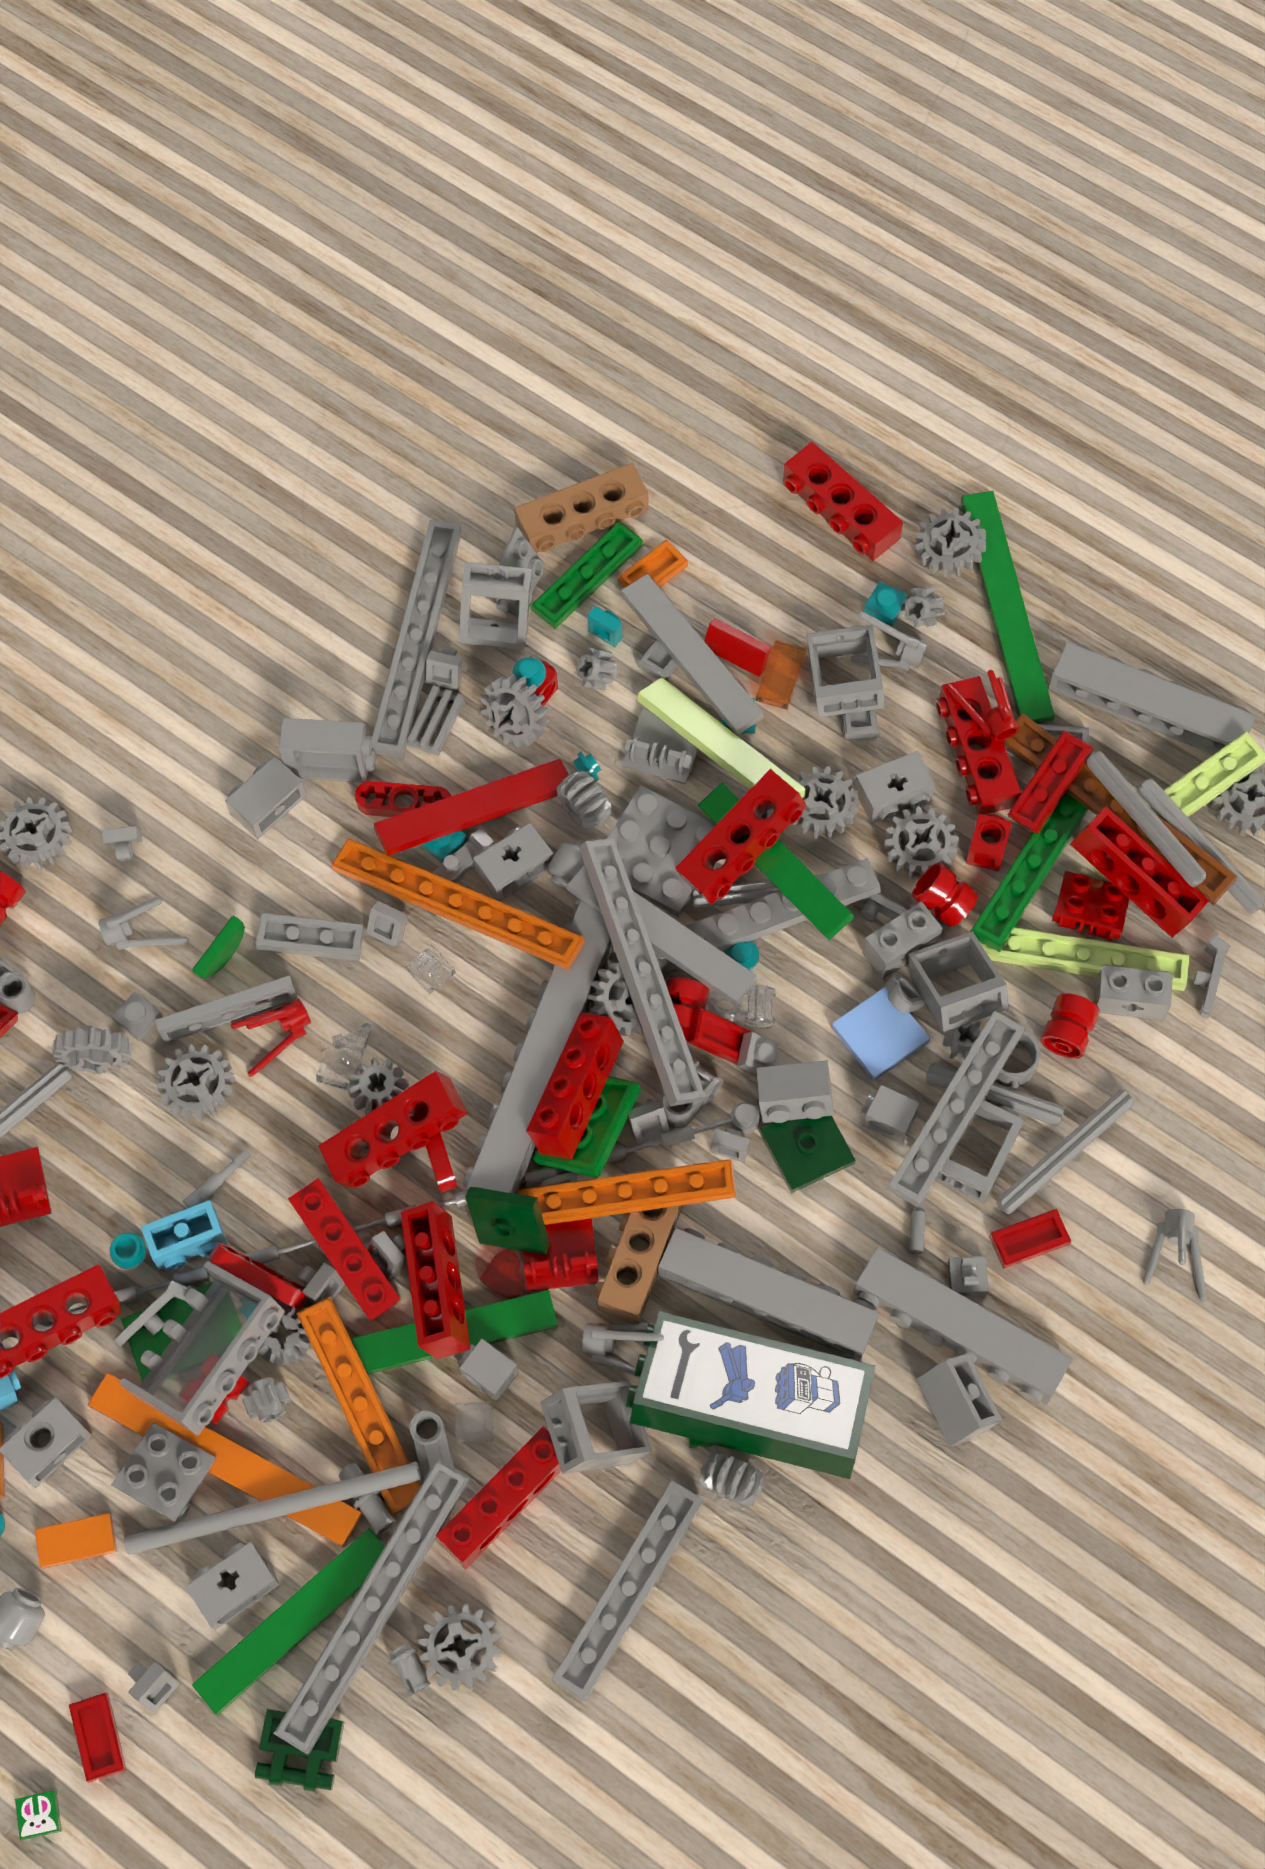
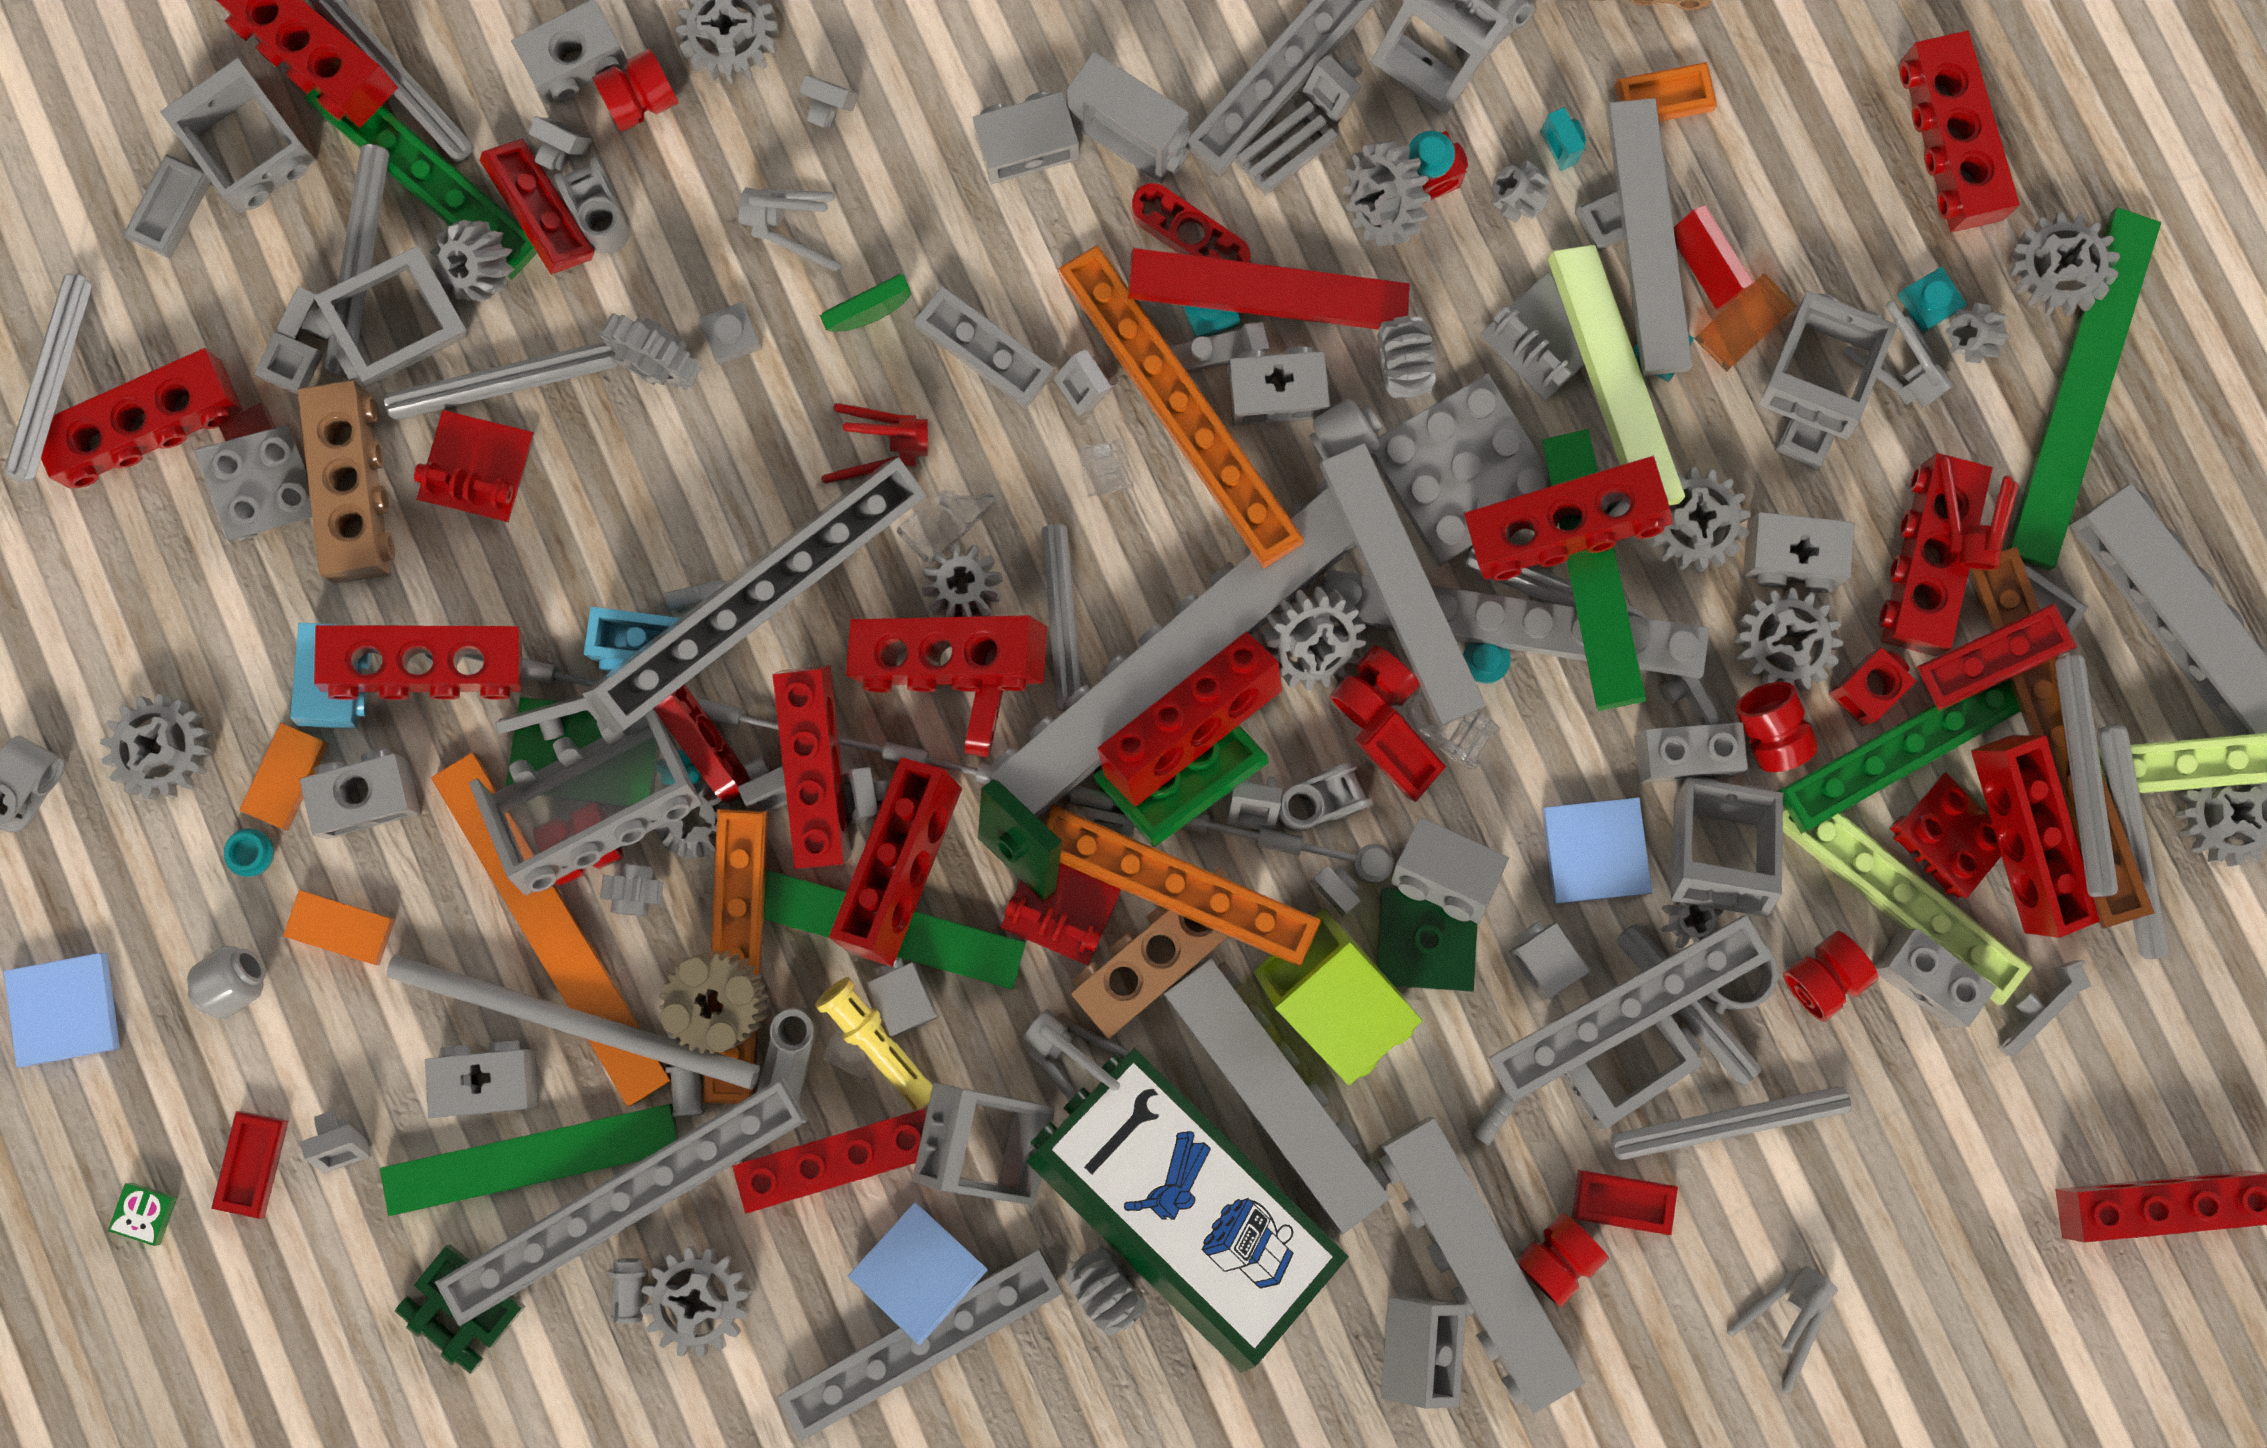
camera: 25 degrees right, 15 degrees up
(128, 1250) = (569, 617): teal plate -> none
(164, 1472) = (472, 909): light grey hinge -> none
(180, 1091) = (733, 457): light grey gear -> none
(226, 1009) = (836, 385): light grey tile -> none
(246, 1160) = (753, 596): none -> light grey brick
(348, 1419) = (688, 1014): none -> dark tan brick
(451, 1068) = (1061, 612): none -> light grey axle
(473, 1399) = (863, 1028): none -> light yellow pin
(504, 1275) = (984, 894): clear red tile -> none
(586, 575) = (1580, 55): green tile -> none
(587, 764) = (1436, 312): teal plate -> none
(600, 1541) = (917, 1273): none -> light blue tile
(642, 972) = (1347, 623): light grey plate -> none
(756, 1053) = (1432, 795): light grey plate -> none
(773, 1209) = (1339, 1001): none -> lime slope
(903, 994) = (1651, 820): light grey tile -> none
(968, 1275) = (1524, 1205): light grey tile -> none
(1012, 1287) = (1562, 1259): none -> red wheel

